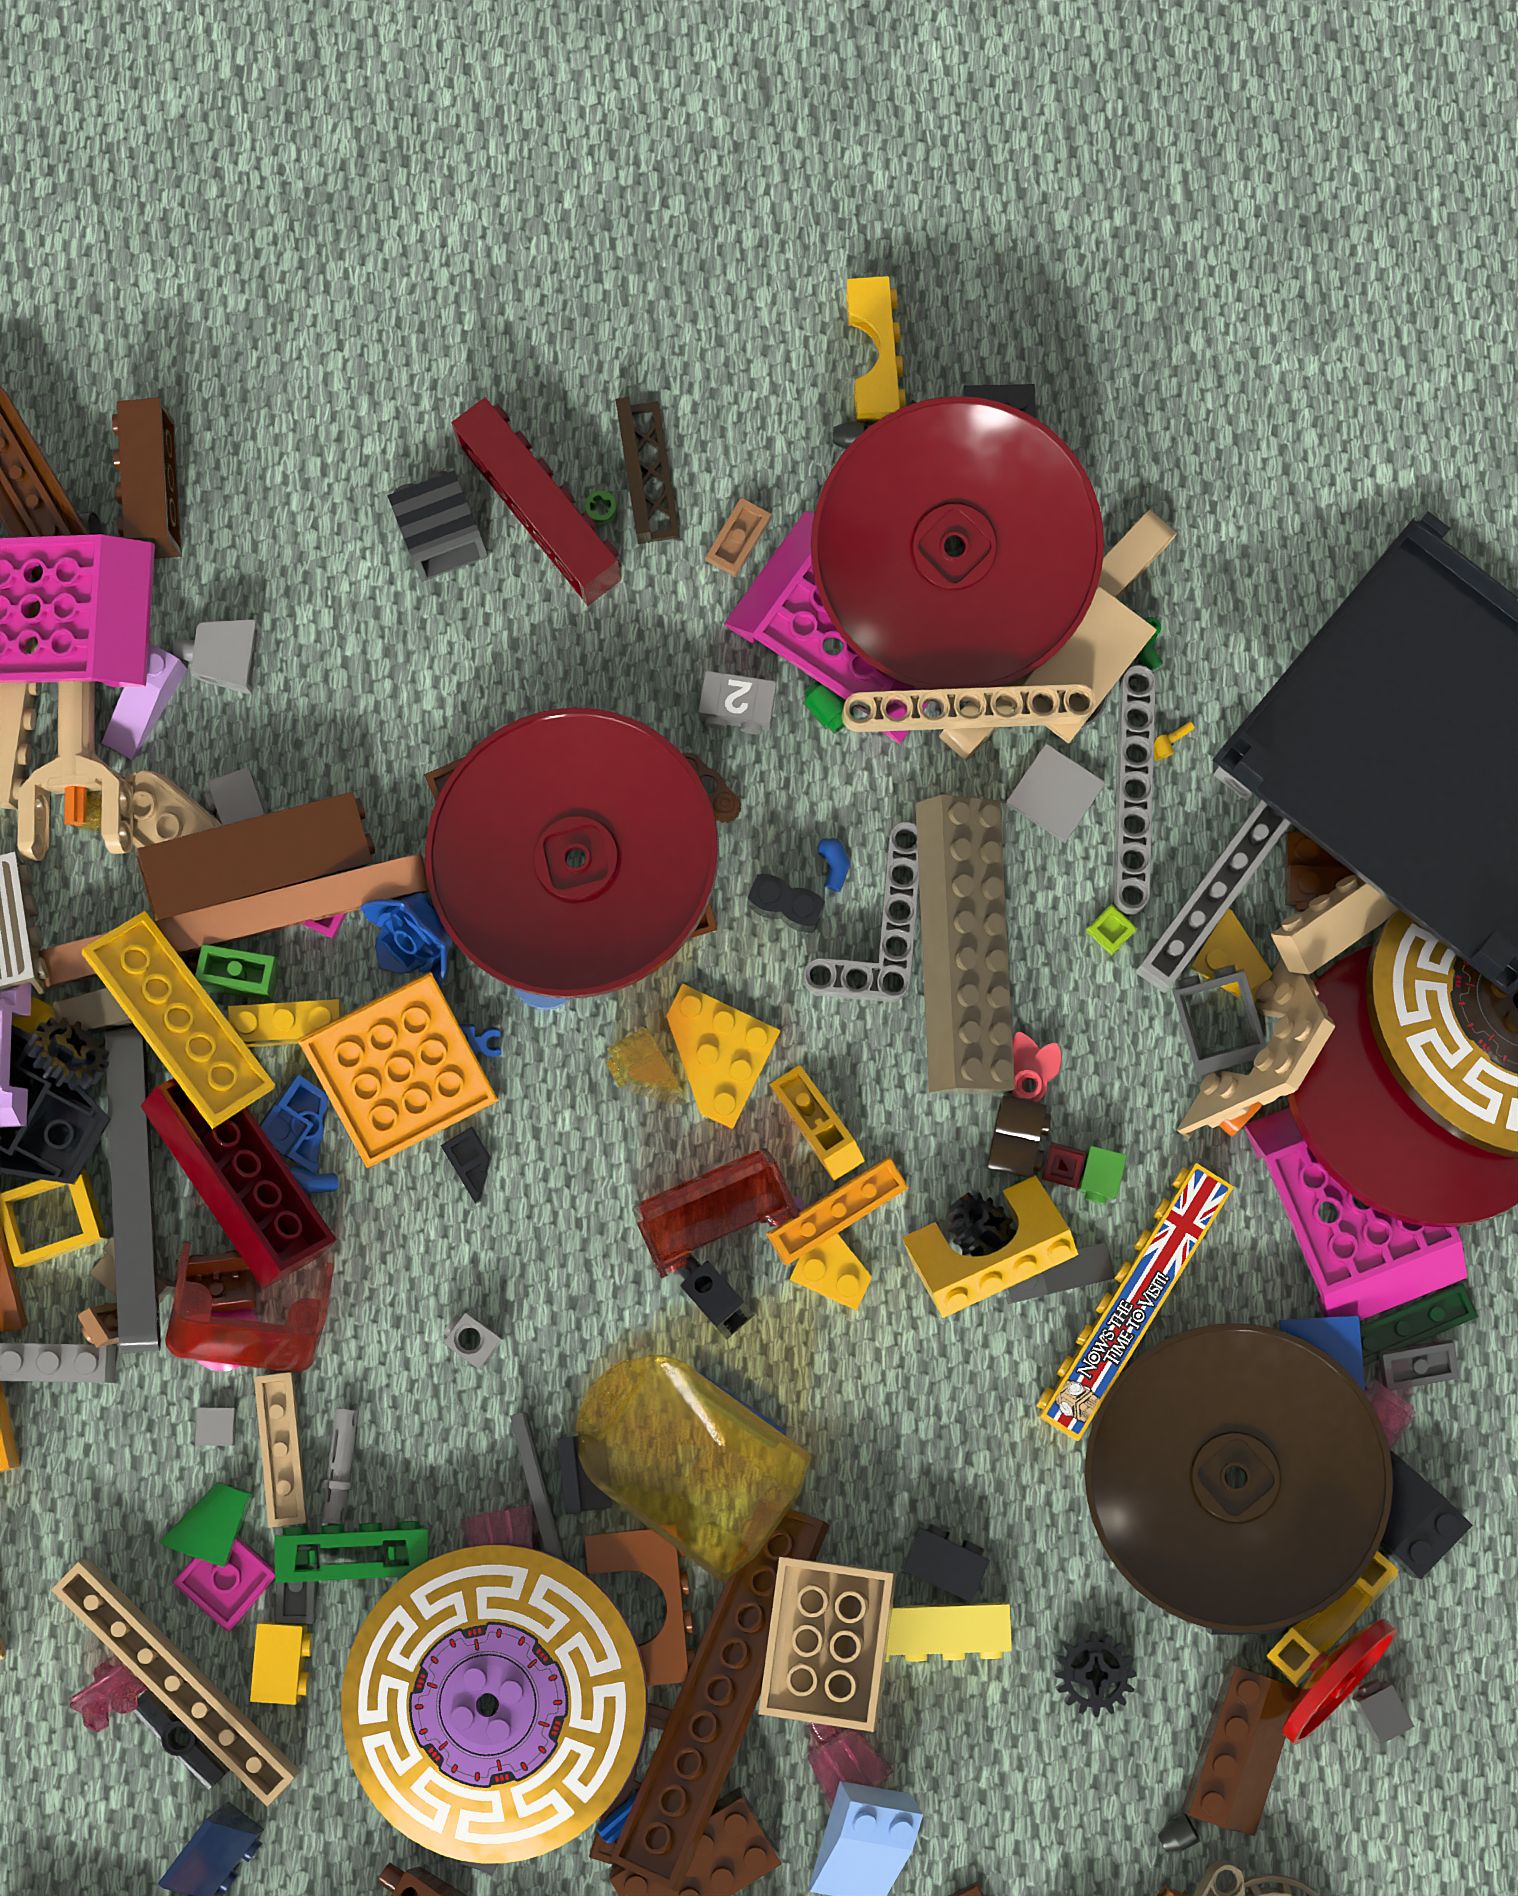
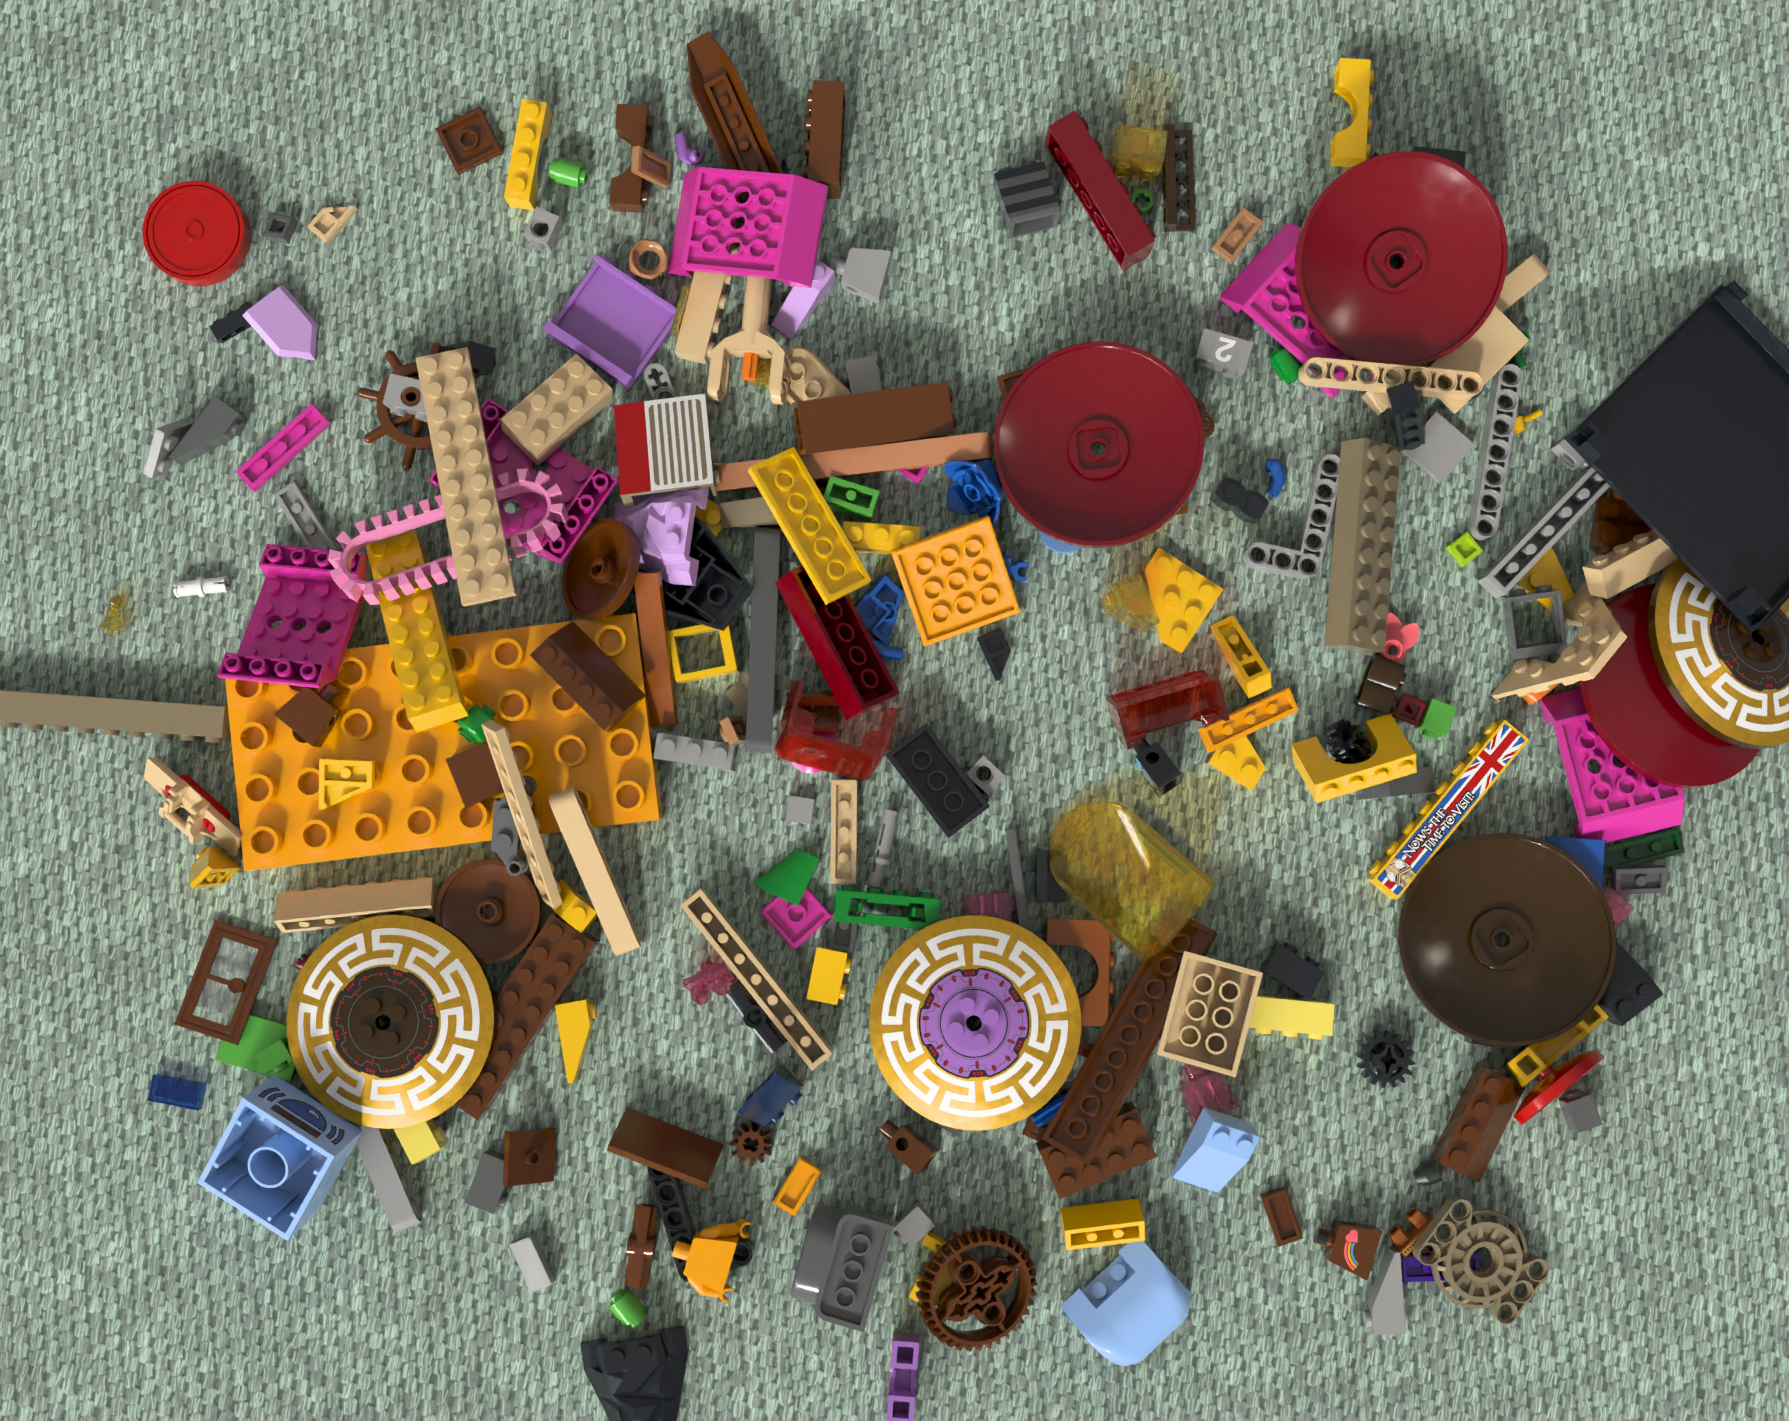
camera: 15 degrees right, 5 degrees up
(65, 1051) = (730, 539): black gear -> none
(404, 1358) = (937, 780): none -> black brick
(582, 442) = (1138, 151): none -> clear yellow brick
(847, 432) = (1325, 172): pearl dark grey hose -> none
(997, 757) = (1406, 416): none -> black brick

